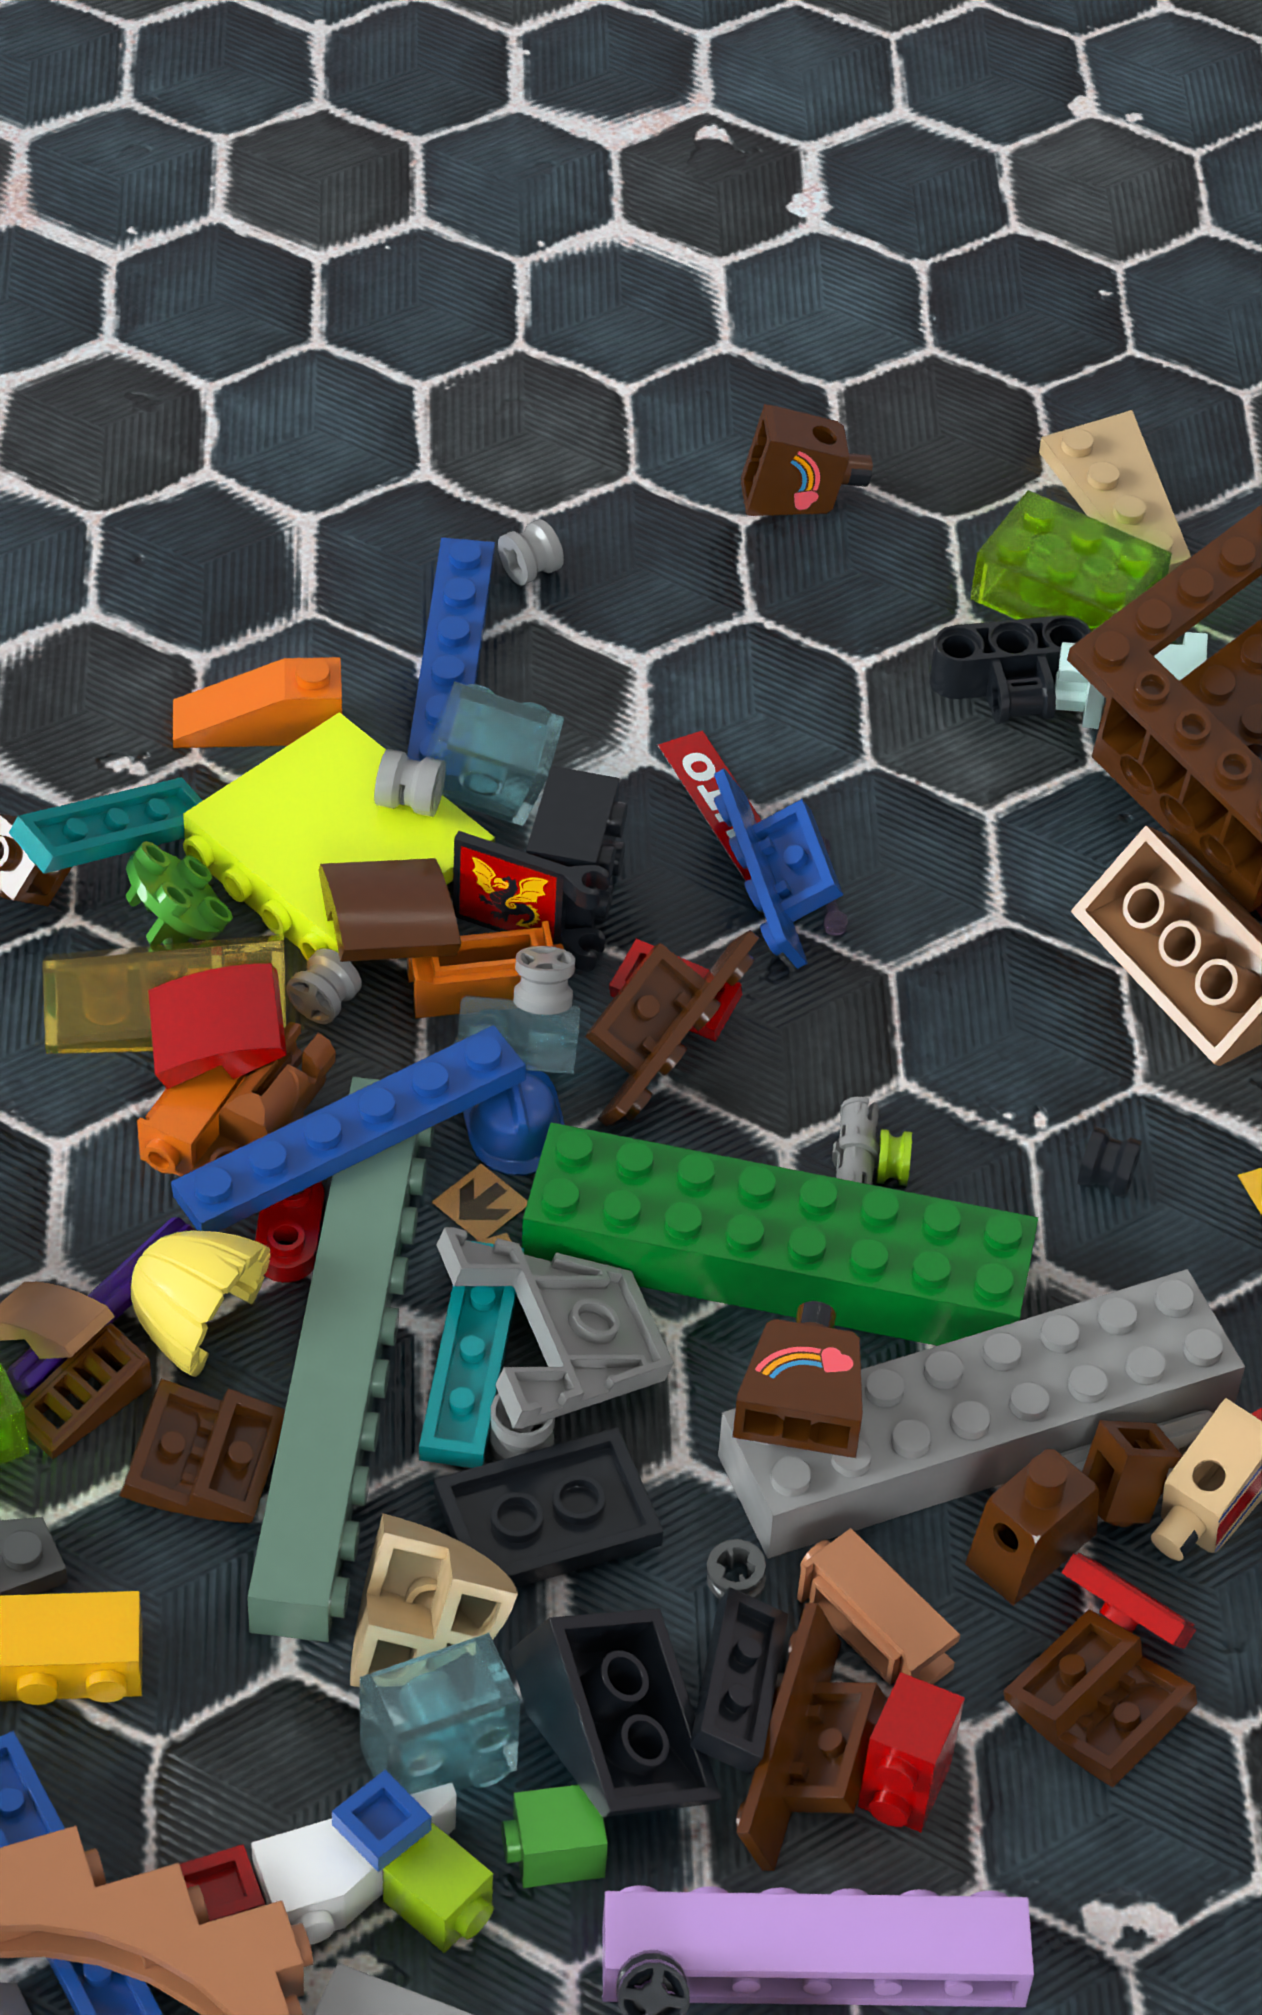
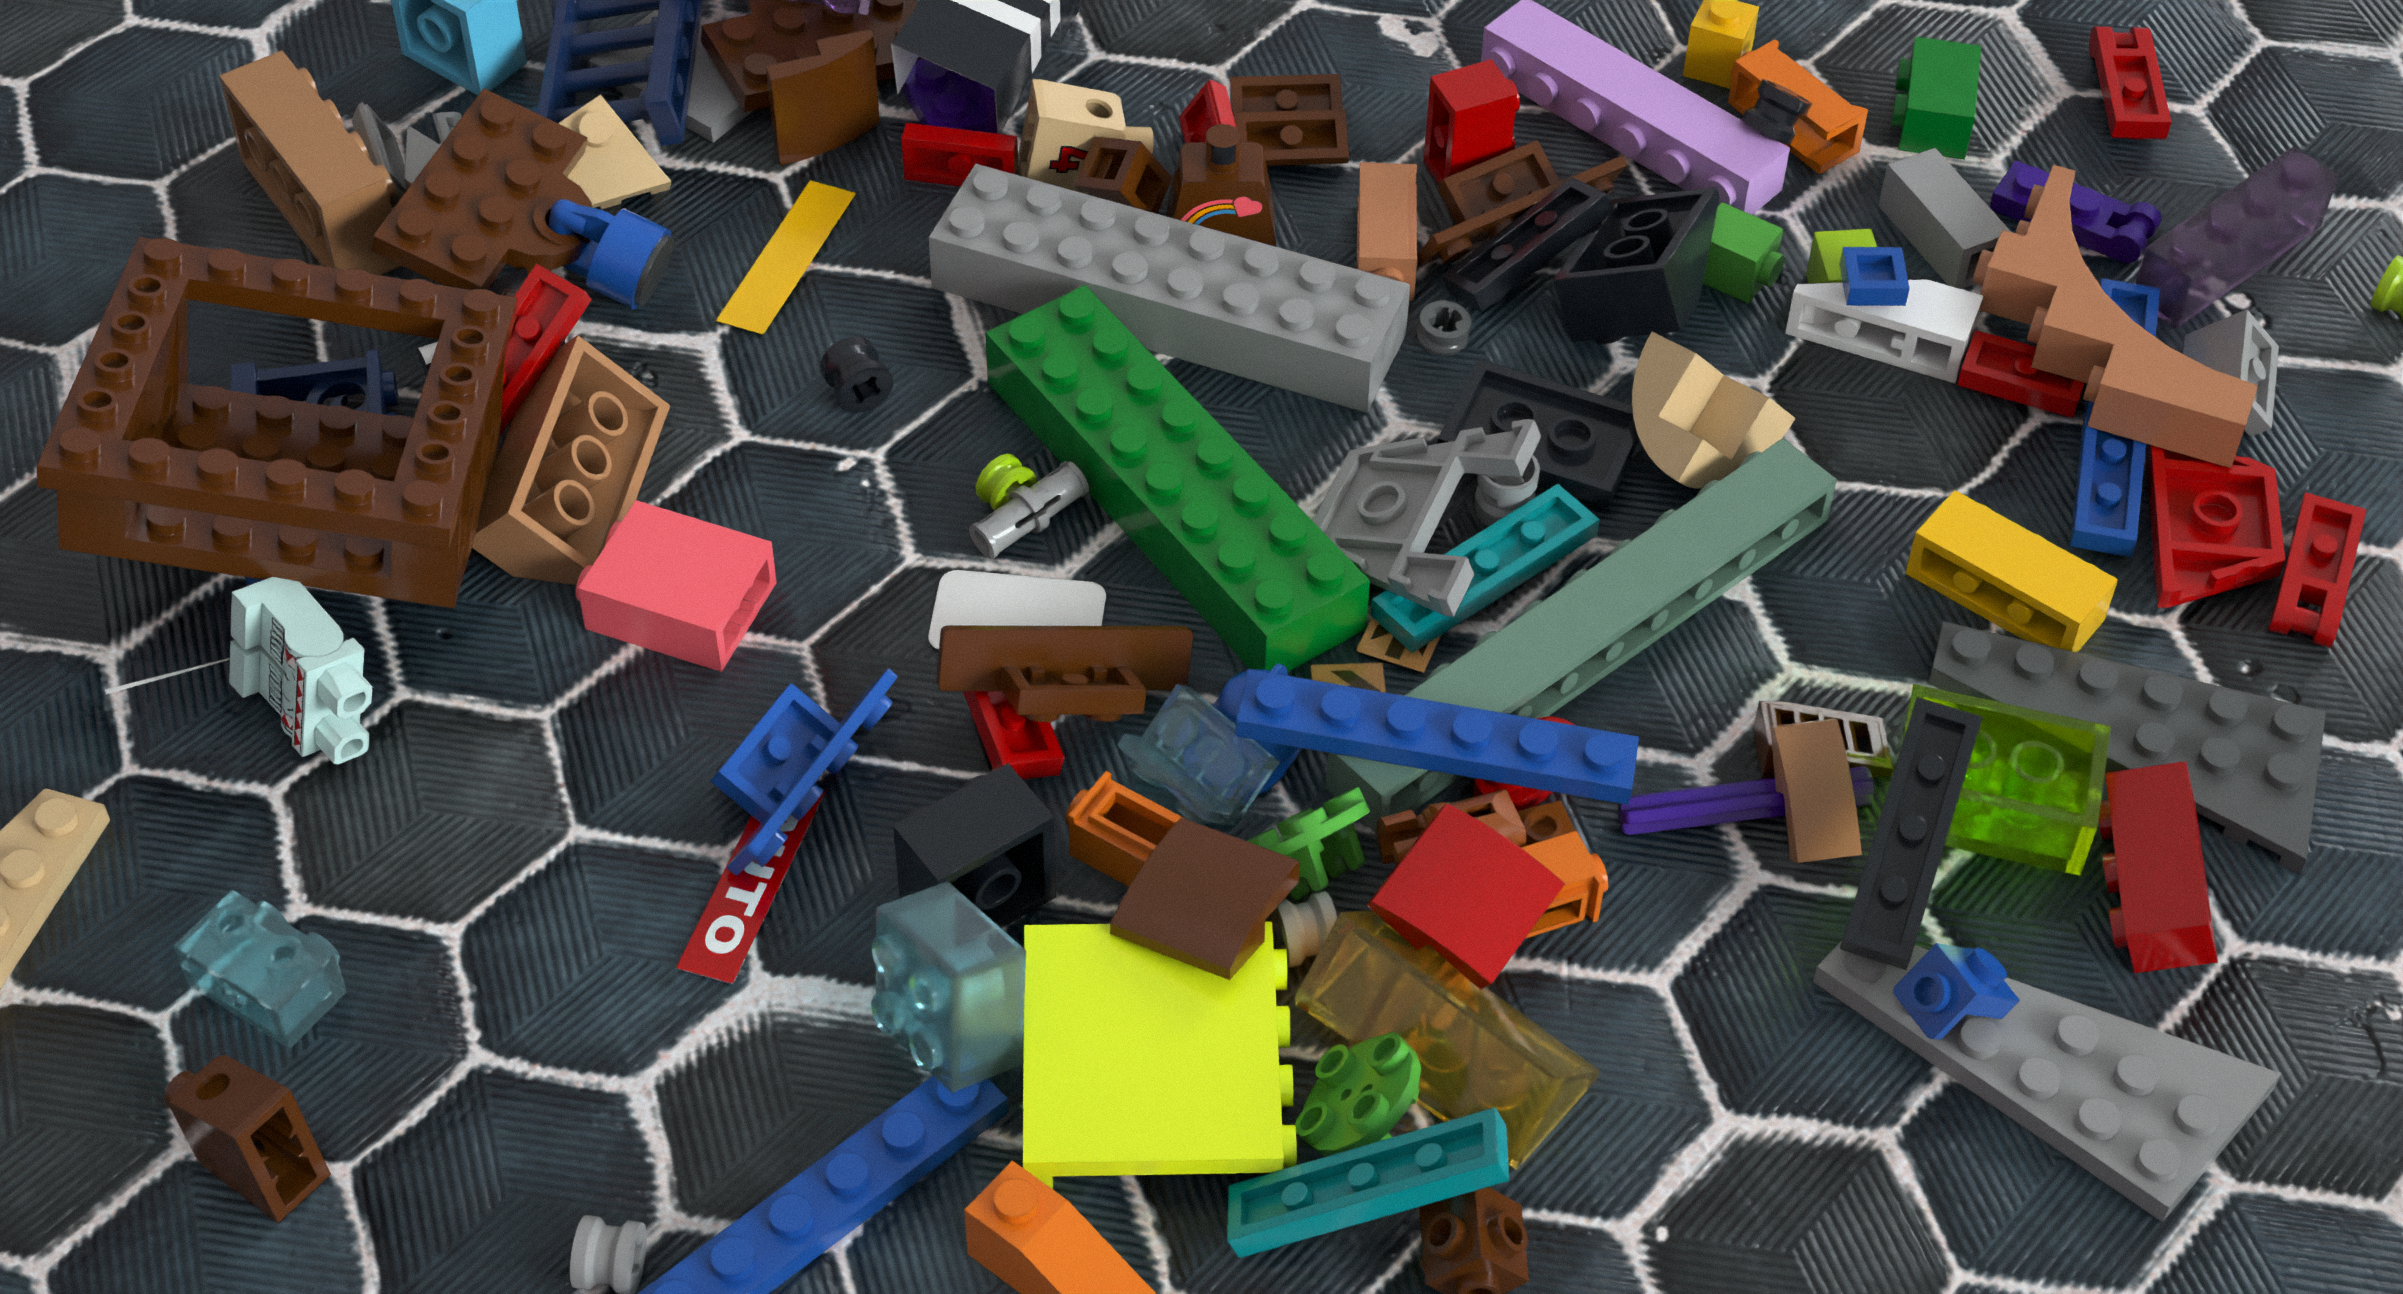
camera: 135 degrees left, 0 degrees up
(183, 1284) = (1680, 705): light yellow hair -> none
(204, 1453) = (1760, 641): reddish brown slope -> none
(378, 1022) = (1320, 840): none -> bright green plate
(410, 782) = (1065, 1001): light grey wheel -> none
(442, 1718) = (1771, 323): clear light blue brick -> none
(519, 891) = (1077, 868): flag -> none
(544, 980) = (1126, 741): light grey wheel -> none
(775, 1092) = (1014, 601): none -> white sticker
(803, 1385) = (1317, 299): reddish brown torso -> none
(919, 551) = (261, 967): none -> clear light blue brick
(1005, 661) = (352, 795): black piece -> none
(1011, 921) = (676, 585): none -> coral brick
(1063, 564) = (175, 830): clear neon green brick -> none

